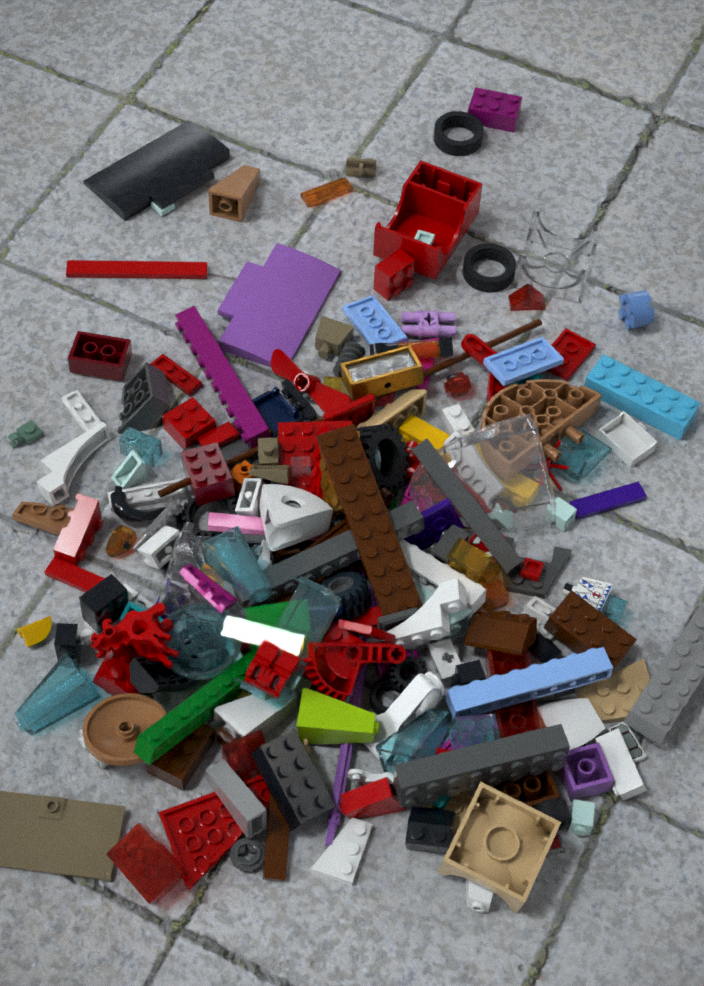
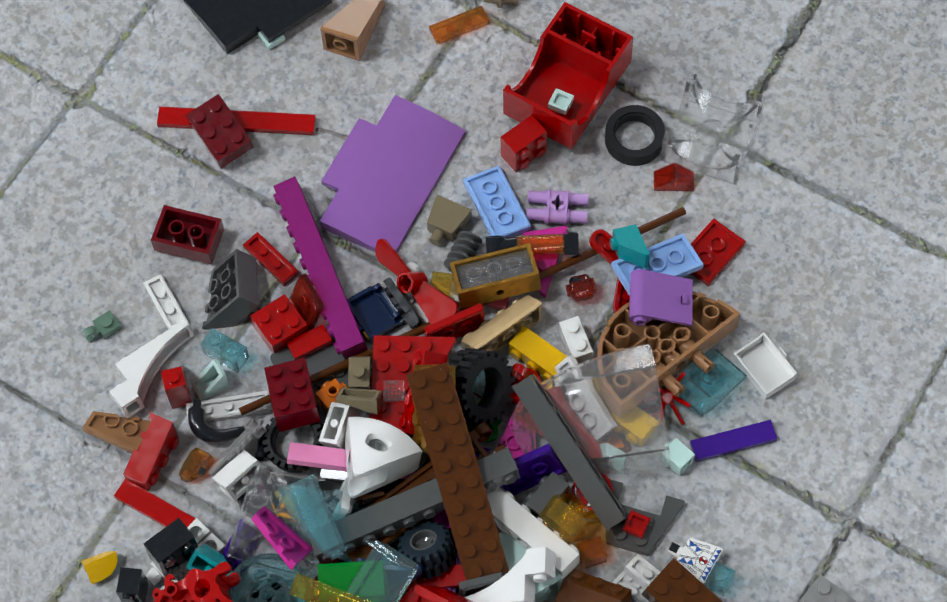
camera: 10 degrees right, 10 degrees up
(98, 475) = (176, 386): none -> red slope
(123, 274) = (219, 131): none -> dark red brick
(214, 400) = (306, 301): none -> clear red tile
(499, 344) = (630, 245): none -> teal slope
(530, 380) = (660, 298): none -> medium lavender door
(636, 309) = (795, 201): medium blue brick -> none
(642, 397) = (788, 313): medium azure brick -> none

